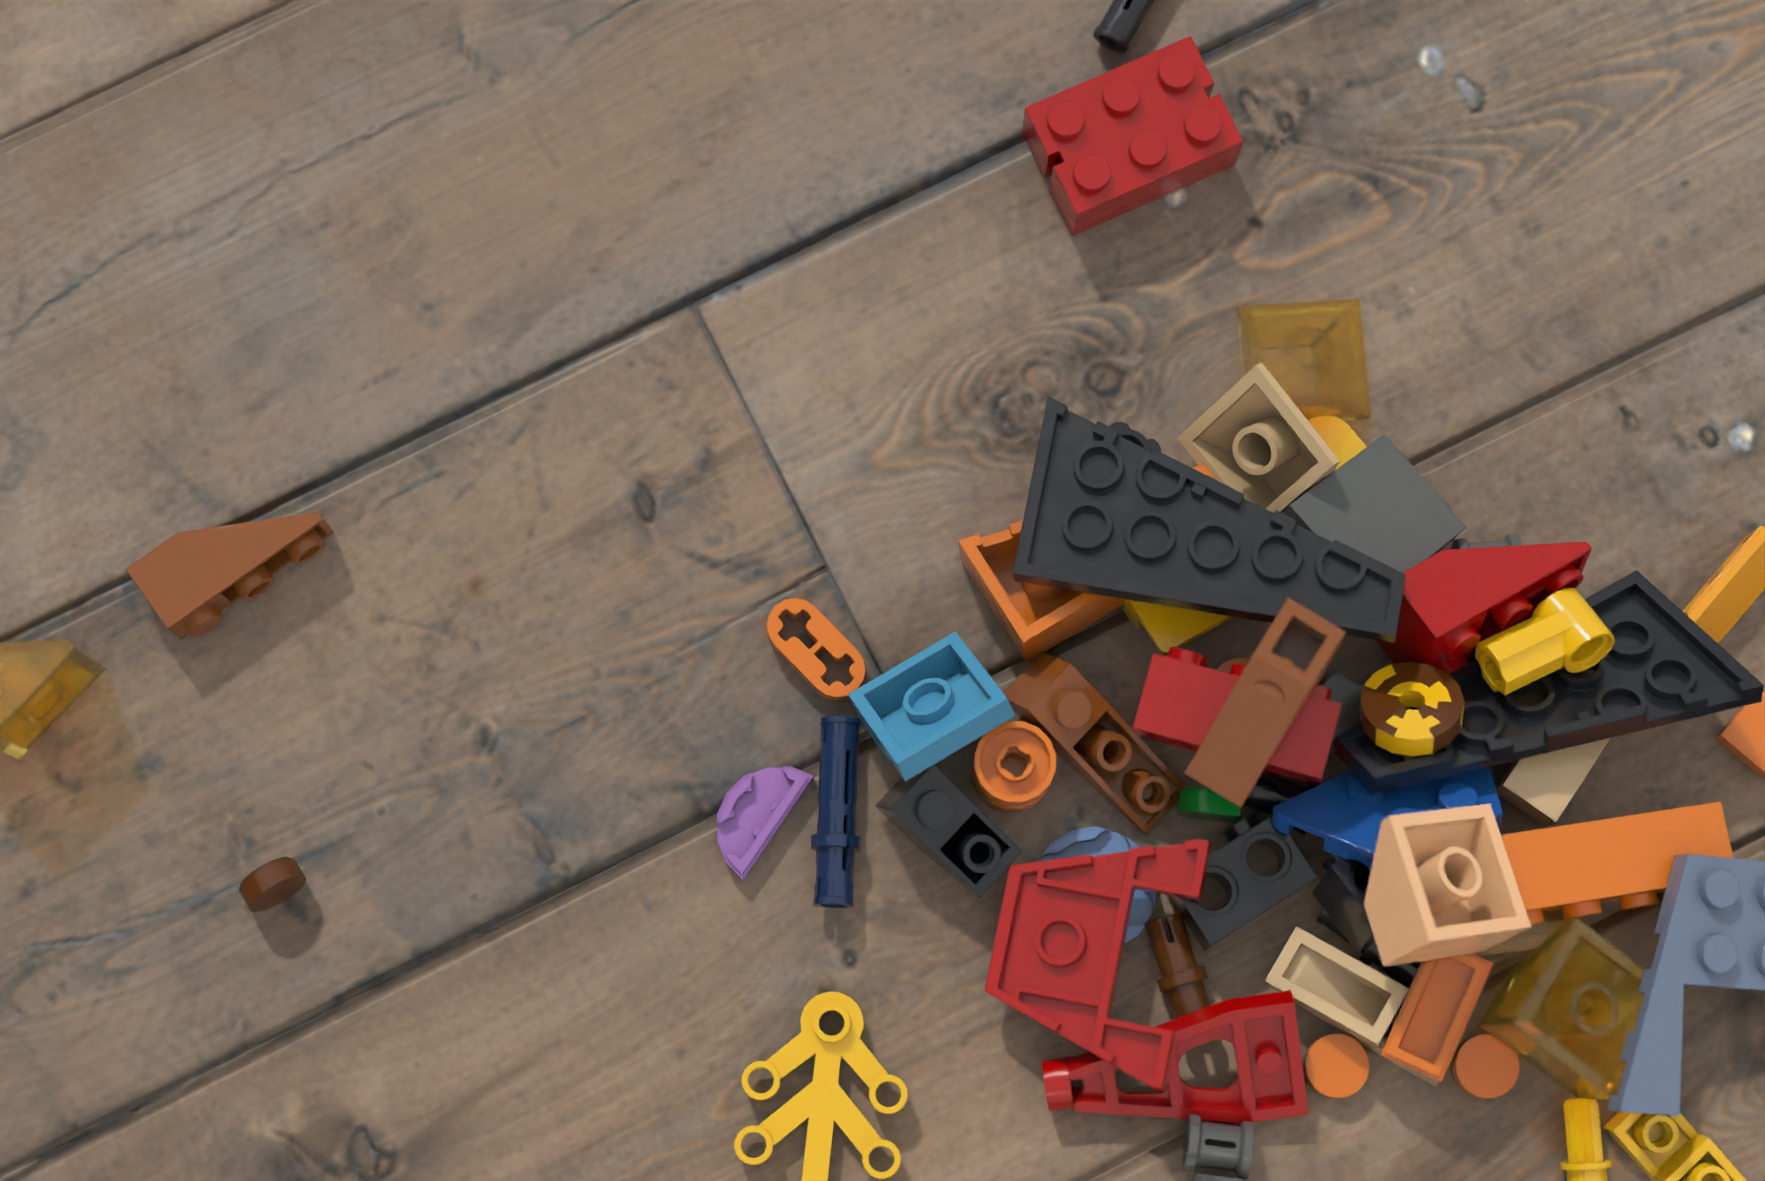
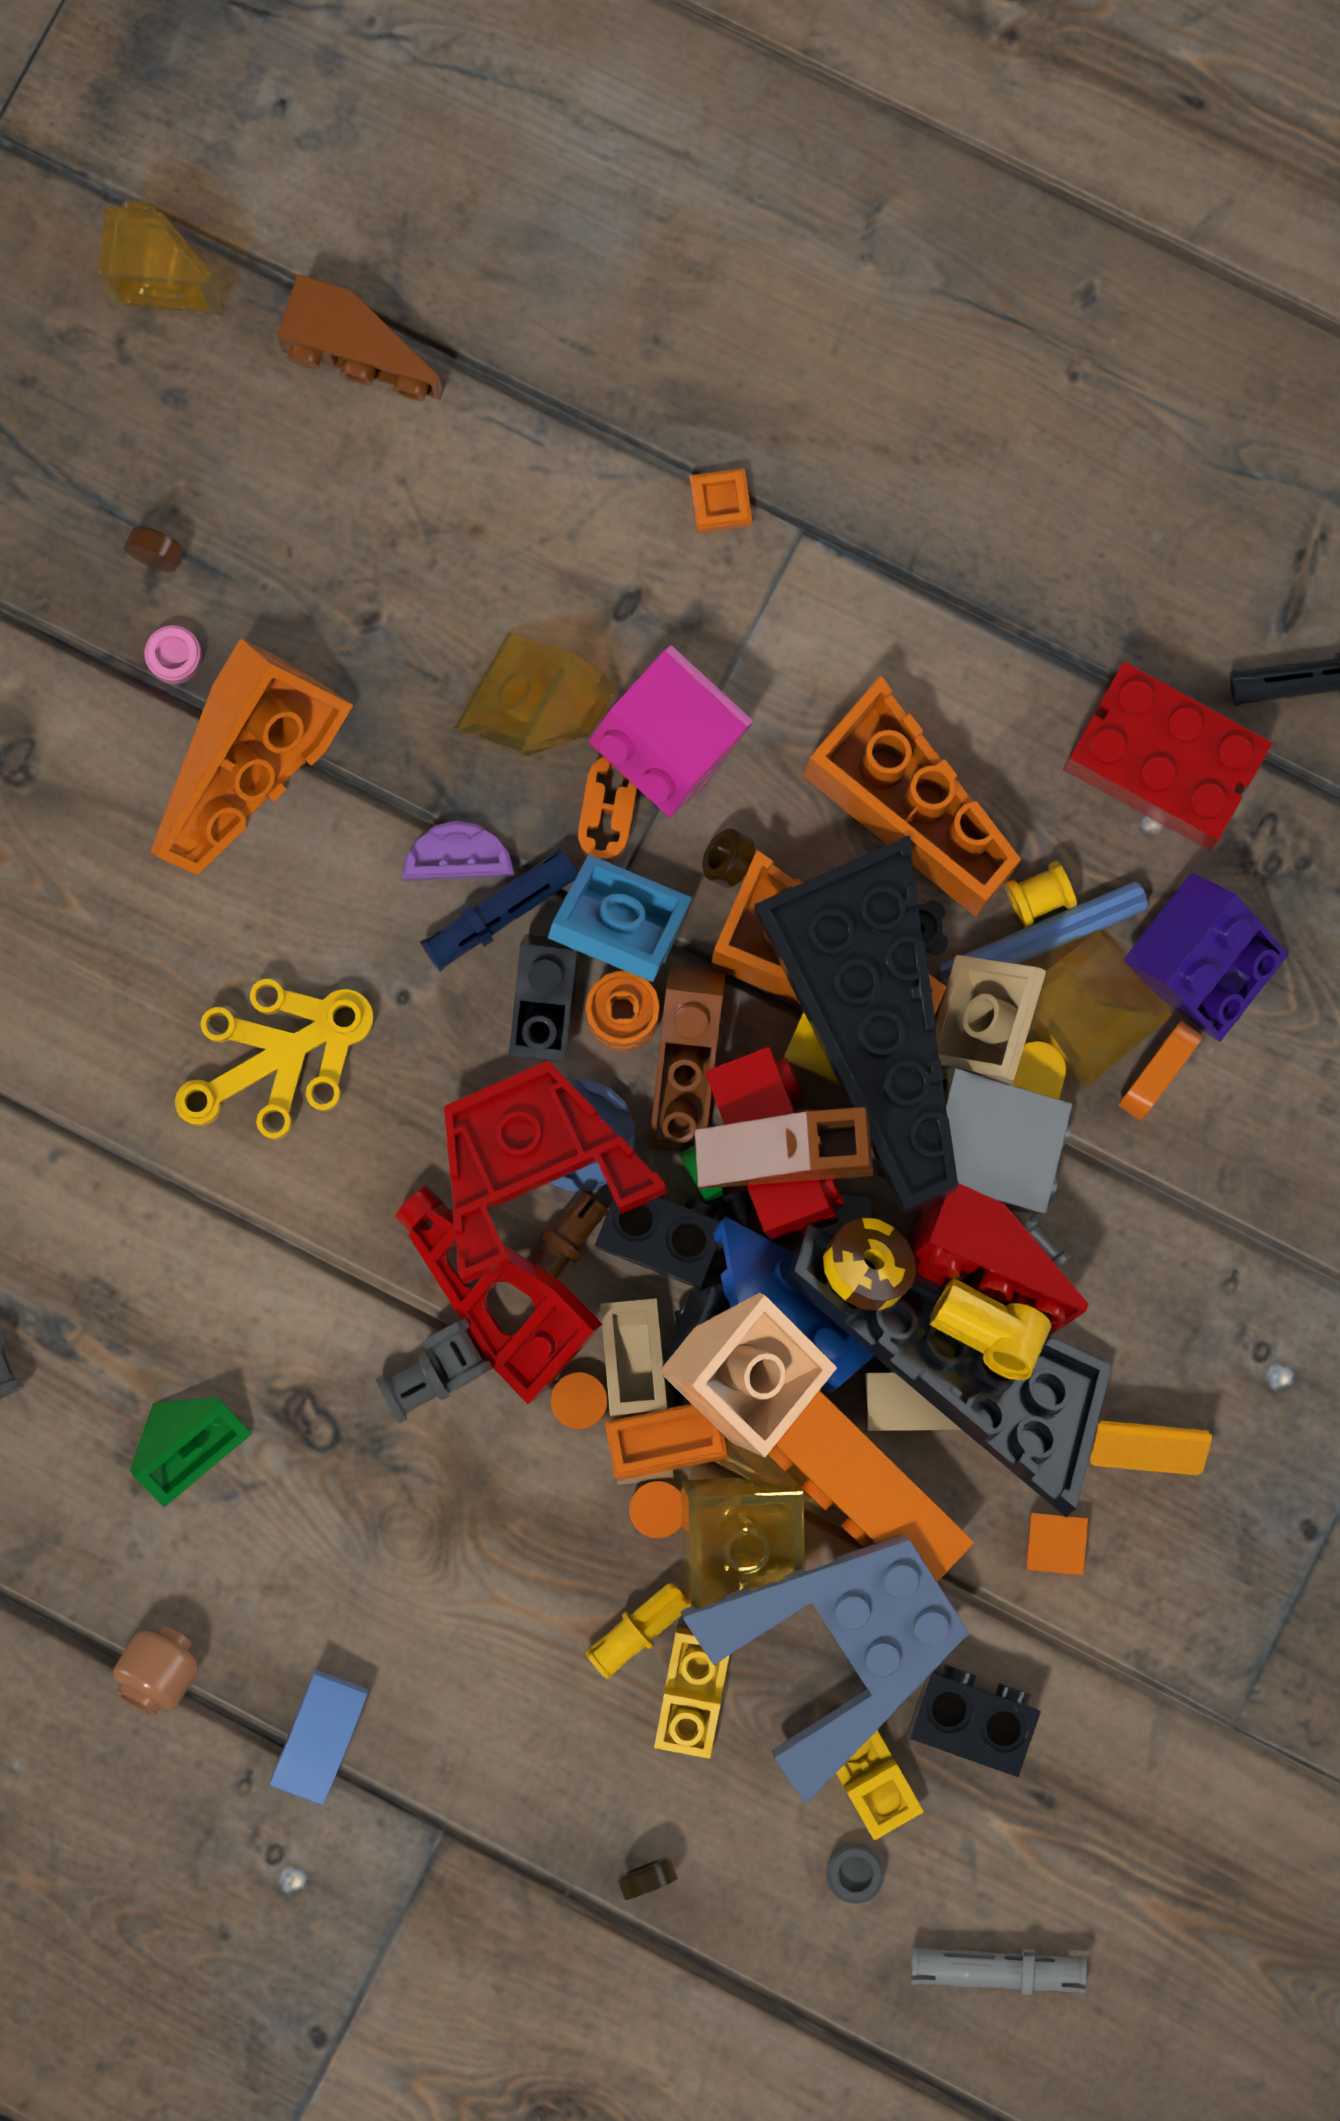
camera: 55 degrees right, 5 degrees up
(380, 938) = (173, 654): none -> bright pink tile
(513, 924) = (248, 742): none -> orange wedge
(614, 353) = (720, 501): none -> orange tile
(669, 640) = (535, 698): none -> clear yellow slope
(794, 539) = (671, 732): none -> dark pink slope
(941, 575) = (728, 858): none -> dark brown tile
(994, 380) = (900, 787): none -> orange wedge
(1172, 330) = (1040, 894): none -> yellow bush
(1213, 338) = (1060, 928): none -> medium blue axle
(1329, 229) = (1206, 955): none -> dark purple slope
(1403, 341) = (1160, 1070): none -> orange beam

